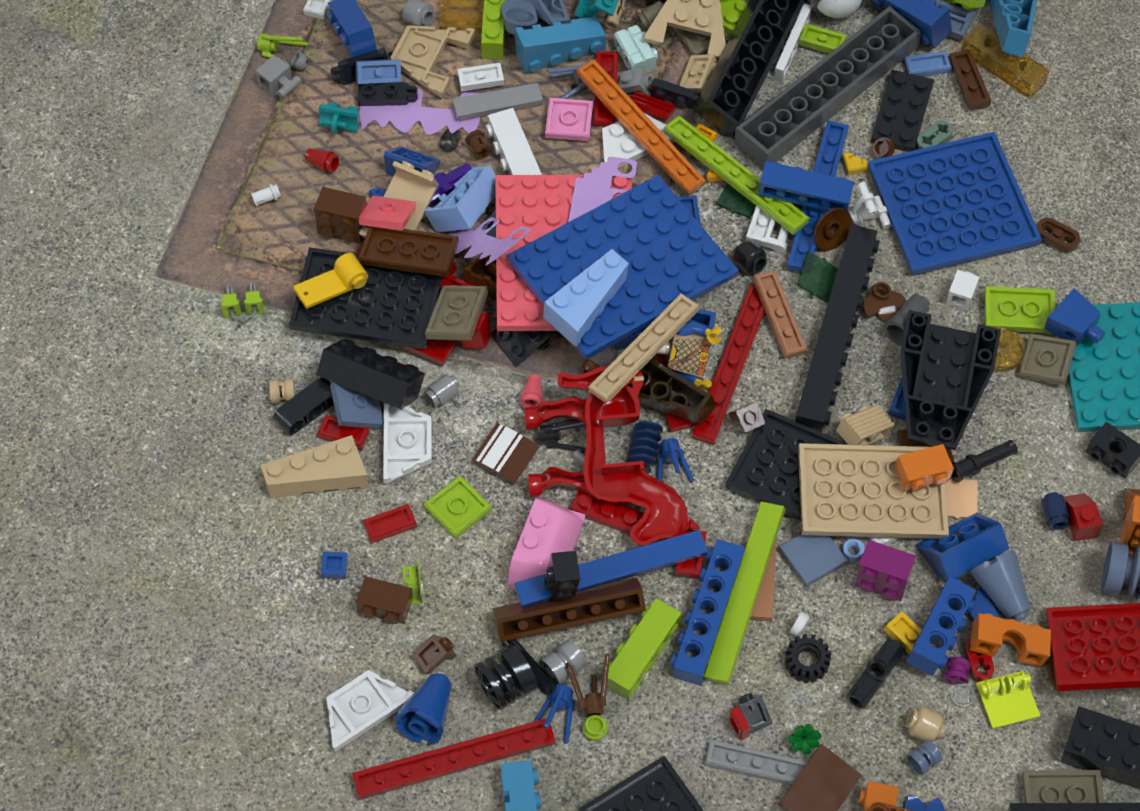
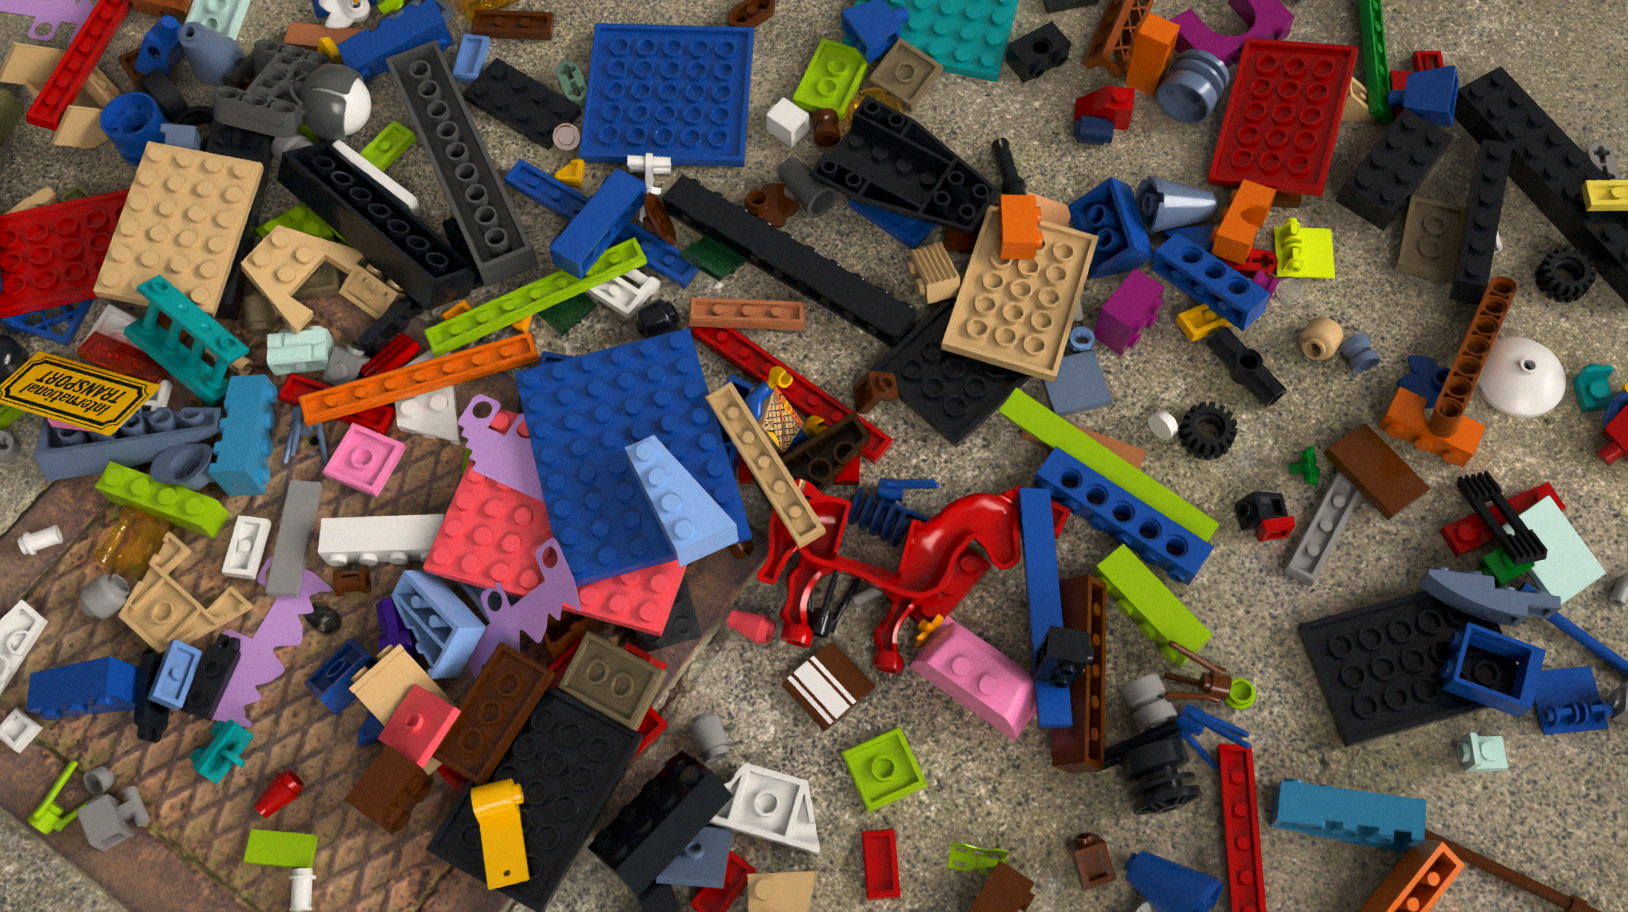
camera: 70 degrees left, 5 degrees up
(288, 175) = (281, 849): none -> lime tile
(568, 502) = (927, 628): none -> light orange plant
(971, 317) = (826, 133): none -> reddish brown wheel

